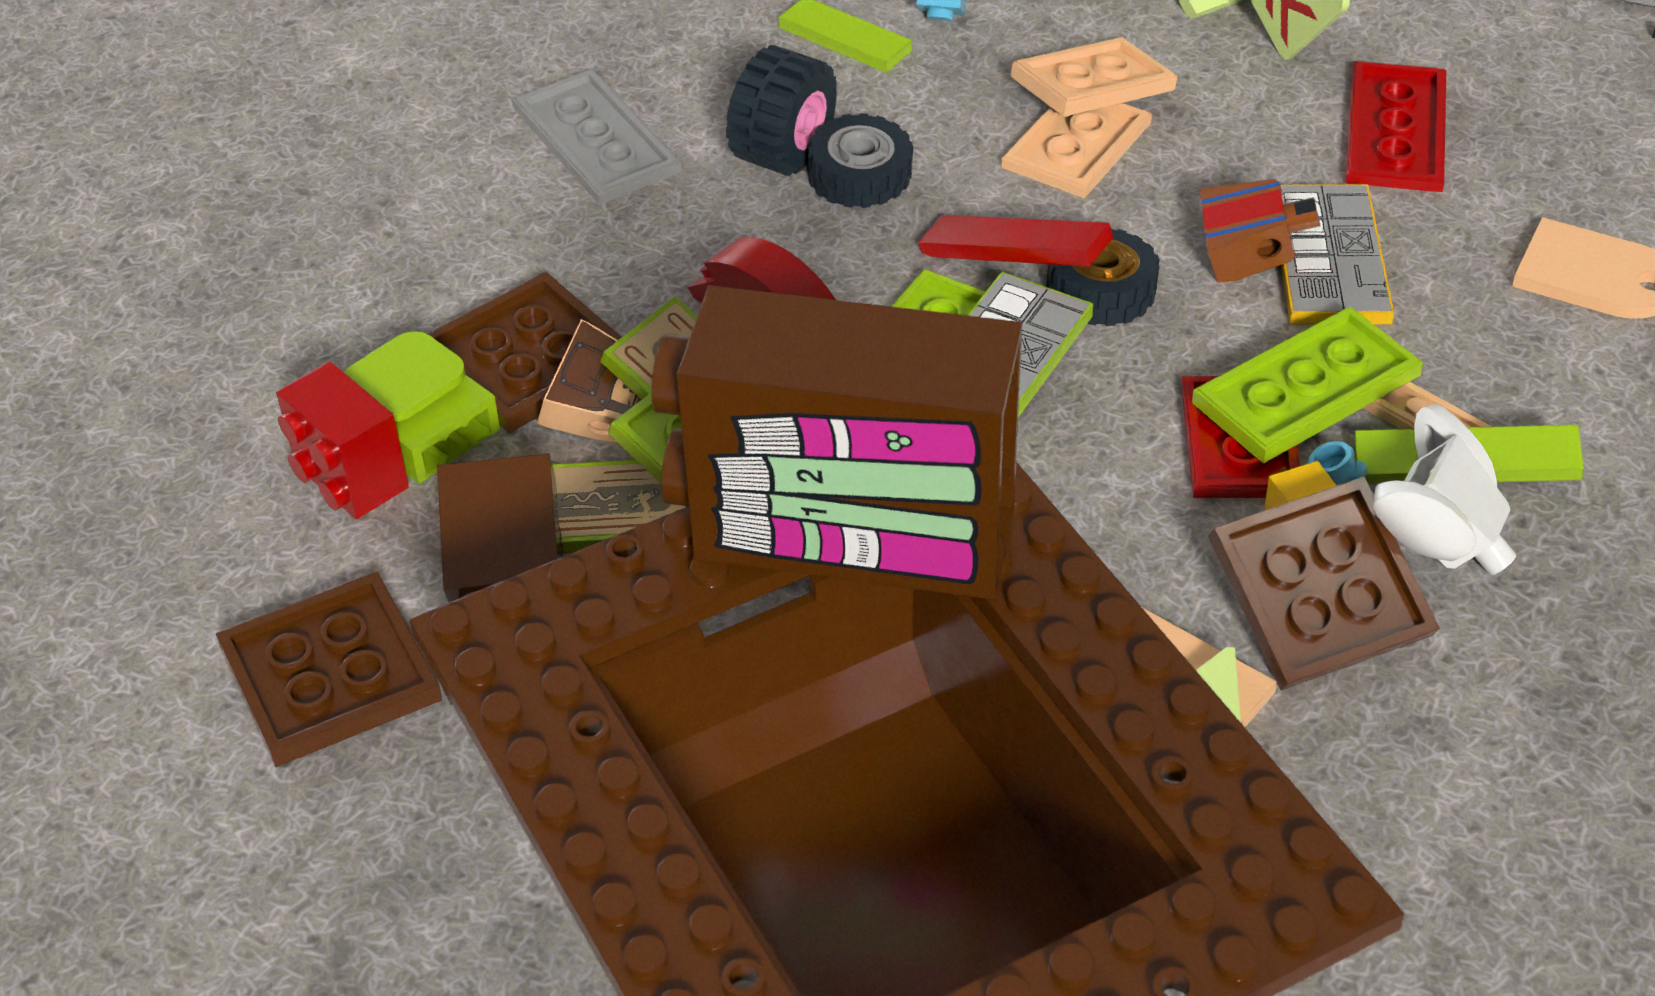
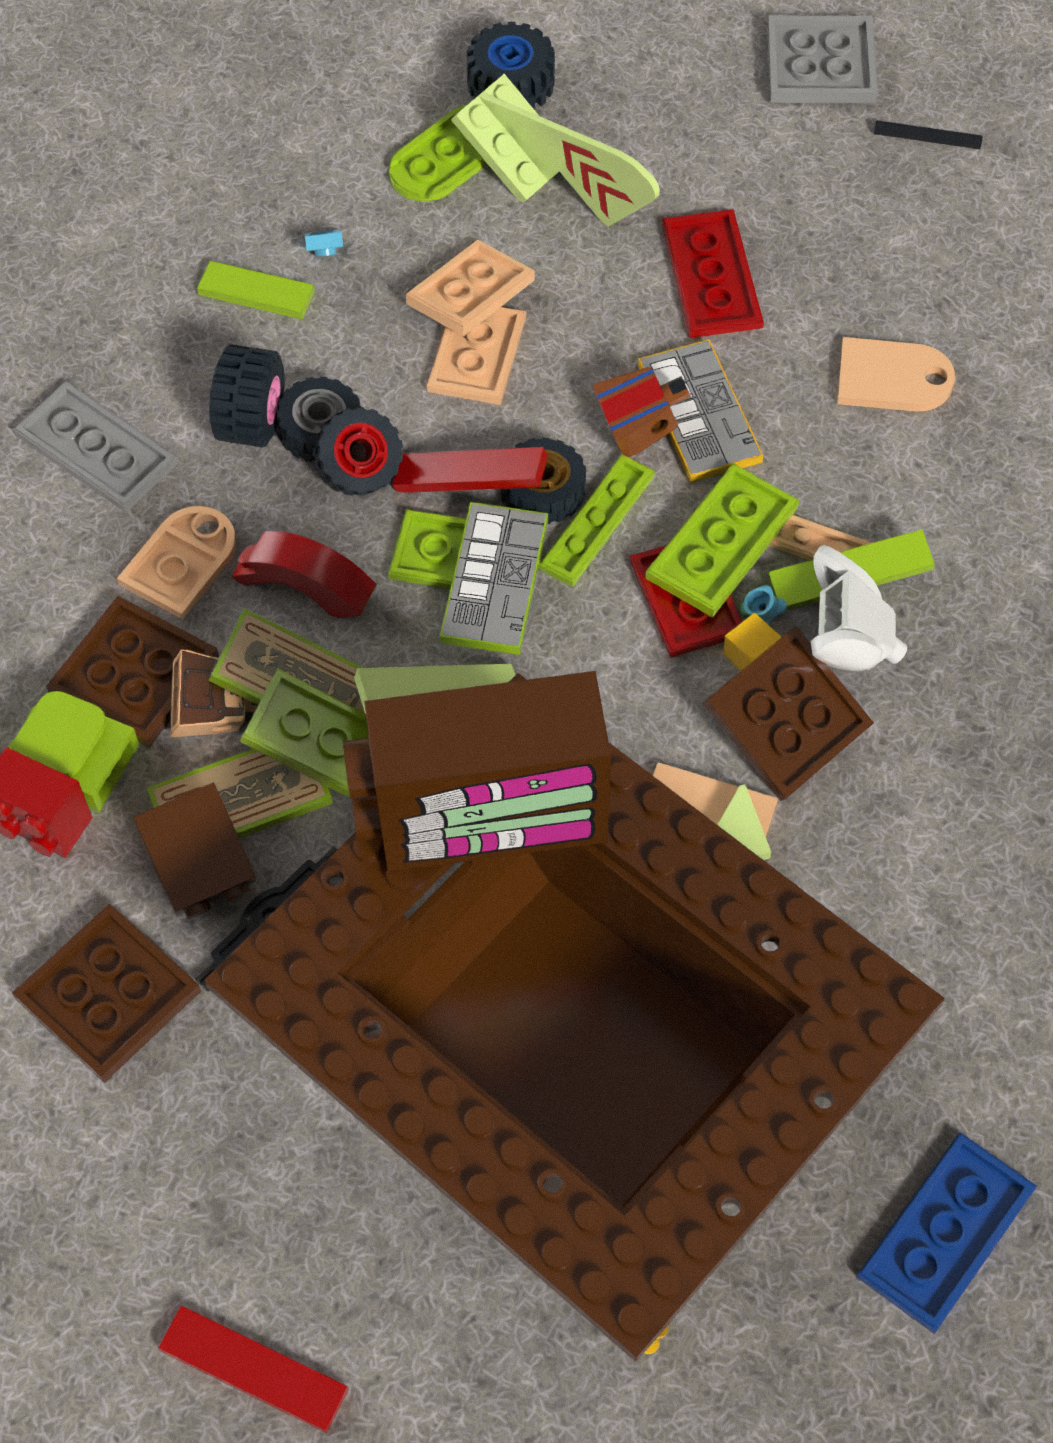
camera: 20 degrees left, 15 degrees up
(637, 260) = (179, 561): none -> light nougat tile
(894, 164) = (381, 448): none -> black wheel
(1154, 334) = (596, 520): none -> lime tile

